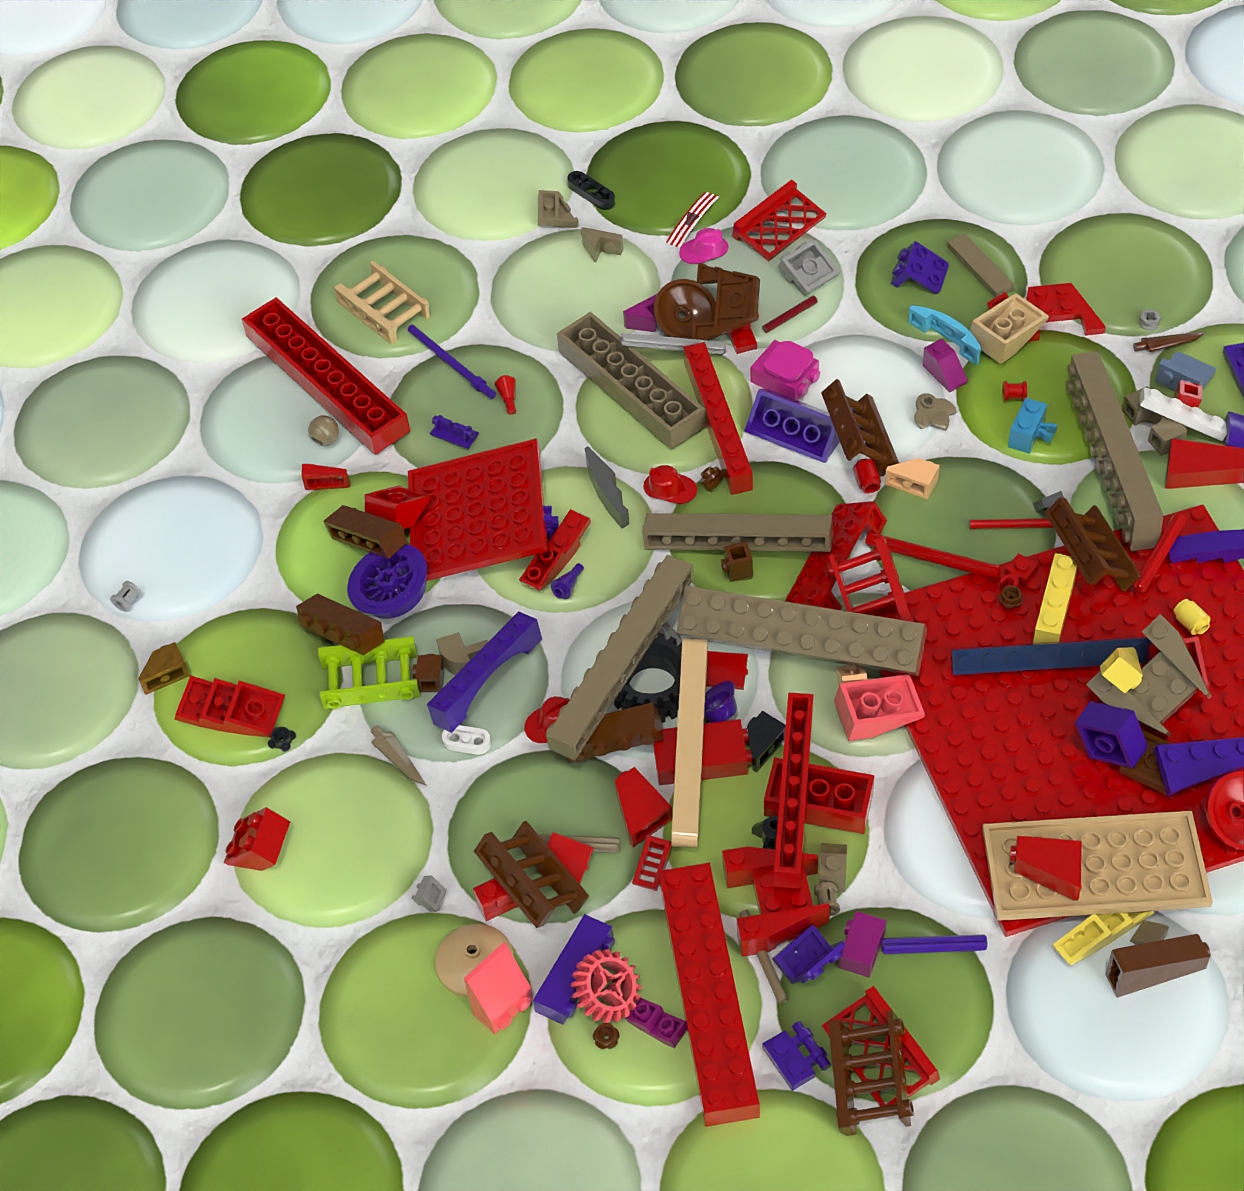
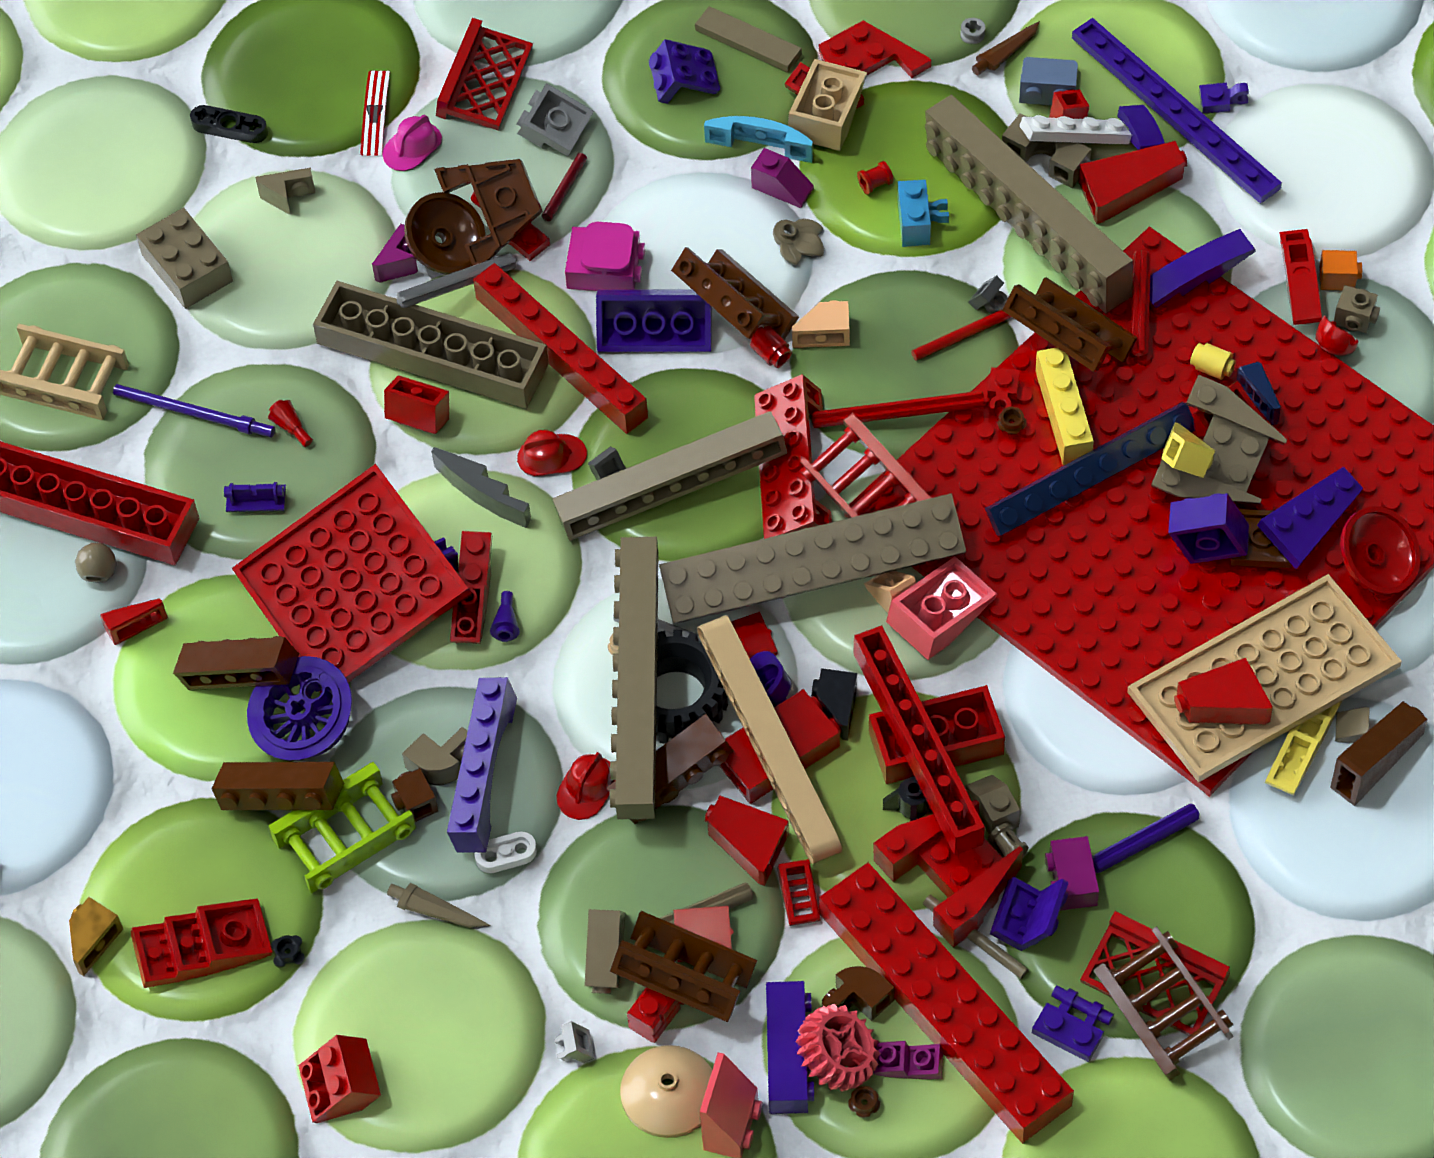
camera: 30 degrees left, 5 degrees up
(397, 504) = (249, 614): red slope -> none
(490, 819) = (603, 938): none -> dark tan slope
(505, 262) = (184, 258): none -> dark tan brick
(554, 211) = (200, 168): dark tan wing -> none
(595, 414) = (416, 404): none -> red brick
(651, 951) = (861, 988): none -> reddish brown brick
(700, 505) = (606, 463): none -> dark grey tile
(711, 477) = (593, 423): reddish brown plate -> none
(737, 561) = (689, 509): reddish brown brick -> none
(1215, 646) = (1257, 386): none -> dark blue slope

